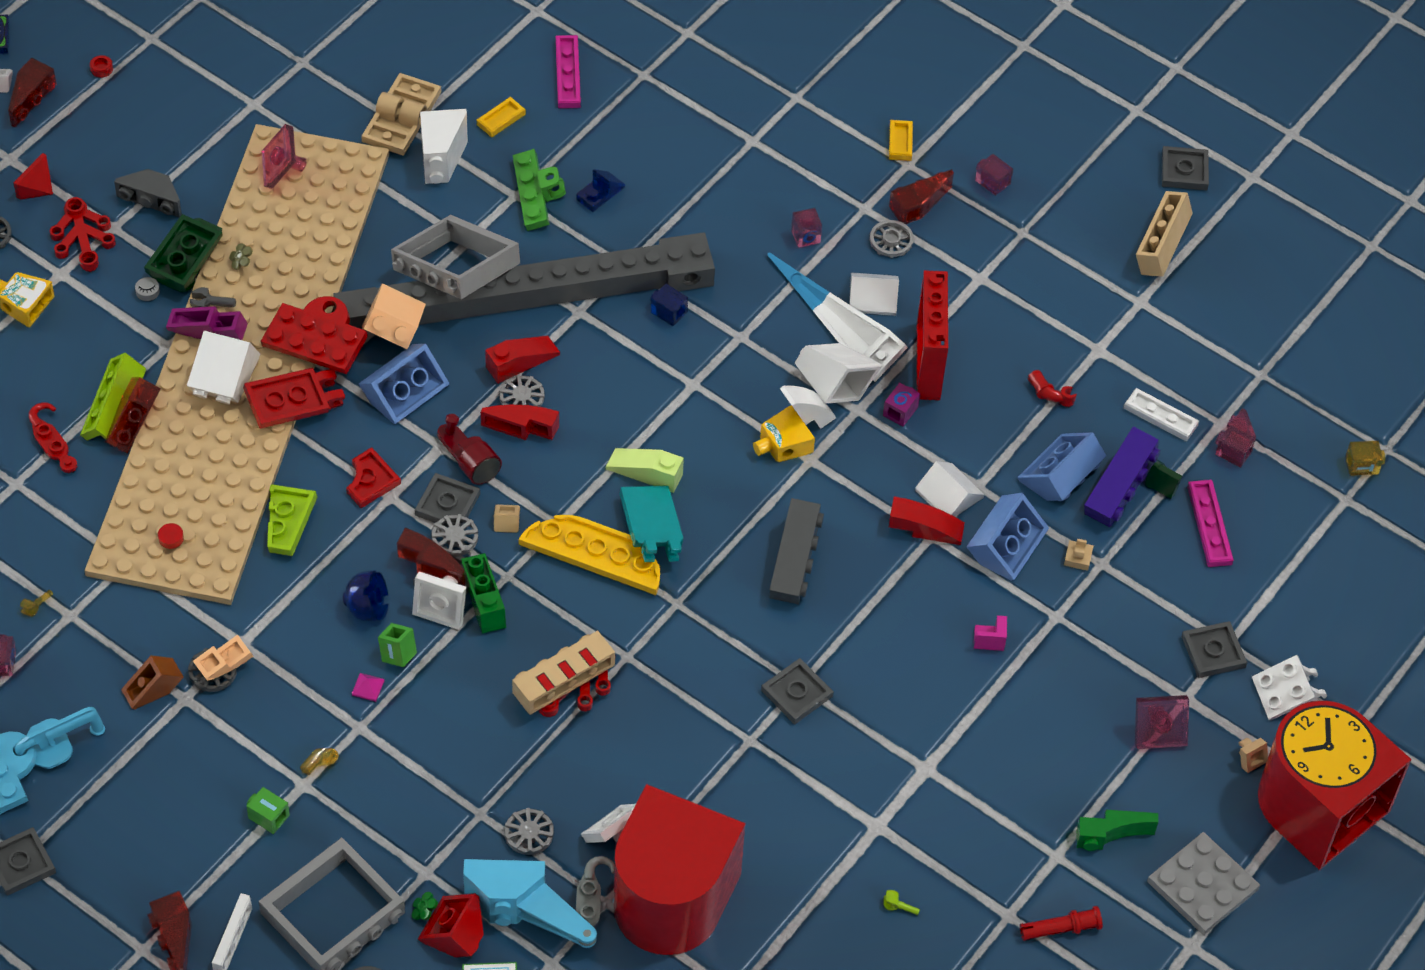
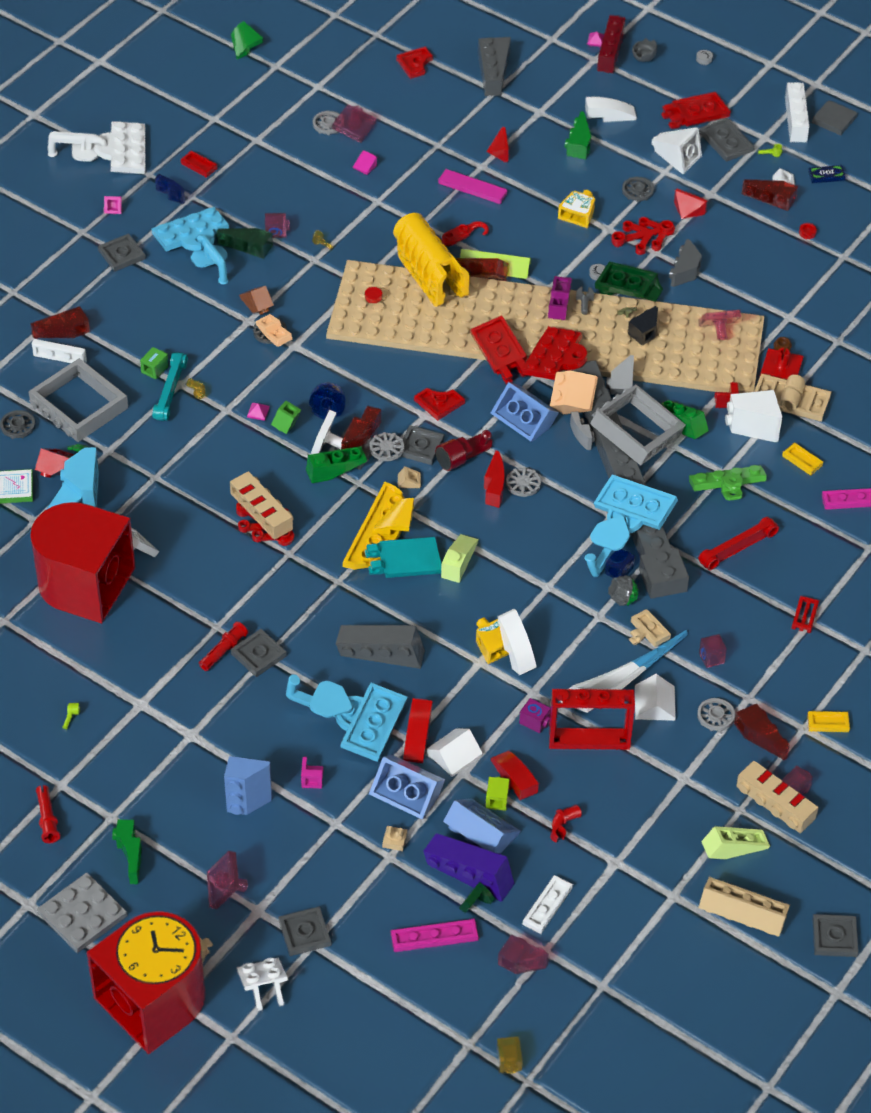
camera: 90 degrees right, 5 degrees down
(29, 686) = (247, 240): none -> clear green slope
(133, 456) = (429, 259): none -> yellow piece
(222, 367) = (519, 304): white slope -> none
(274, 236) = (644, 326): none -> black slope
(288, 517) = (405, 359): lime wing -> none
(309, 113) = (782, 342): none -> reddish brown plate
(344, 119) = (781, 363): none -> red tile
(357, 270) = (621, 377): none -> light grey slope
(362, 800) = (162, 411): none -> teal piece
(394, 174) = (722, 398): none -> red panel
(433, 211) = (693, 418): none -> green slope
(436, 329) = (581, 431): none -> light grey slope
(518, 355) = (556, 474): red slope -> none
(529, 831) = (137, 501): light grey wheel -> none
(590, 522) = (397, 518): none -> yellow slope
(599, 190) = (735, 520): clear blue slope -> none
(599, 266) = (628, 508): none -> medium azure plate
(661, 217) = (711, 558): none -> red piece
(715, 301) = (623, 590): none -> dark grey piece
(744, 145) = (802, 625): none -> red tile
(769, 285) = (648, 627): none -> tan plate
(778, 723) = (228, 641): none -> red pin
(837, 371) = (557, 664): white slope -> none
(906, 577) = (366, 719): none -> medium azure plate
(987, 429) = (519, 776): none -> red slope
(1011, 193) = (777, 797): none -> tan brick
(1015, 448) = (497, 793): none -> lime brick
(1036, 690) = (247, 785): none -> medium blue slope
(1076, 237) = (733, 842): none -> yellowish green slope

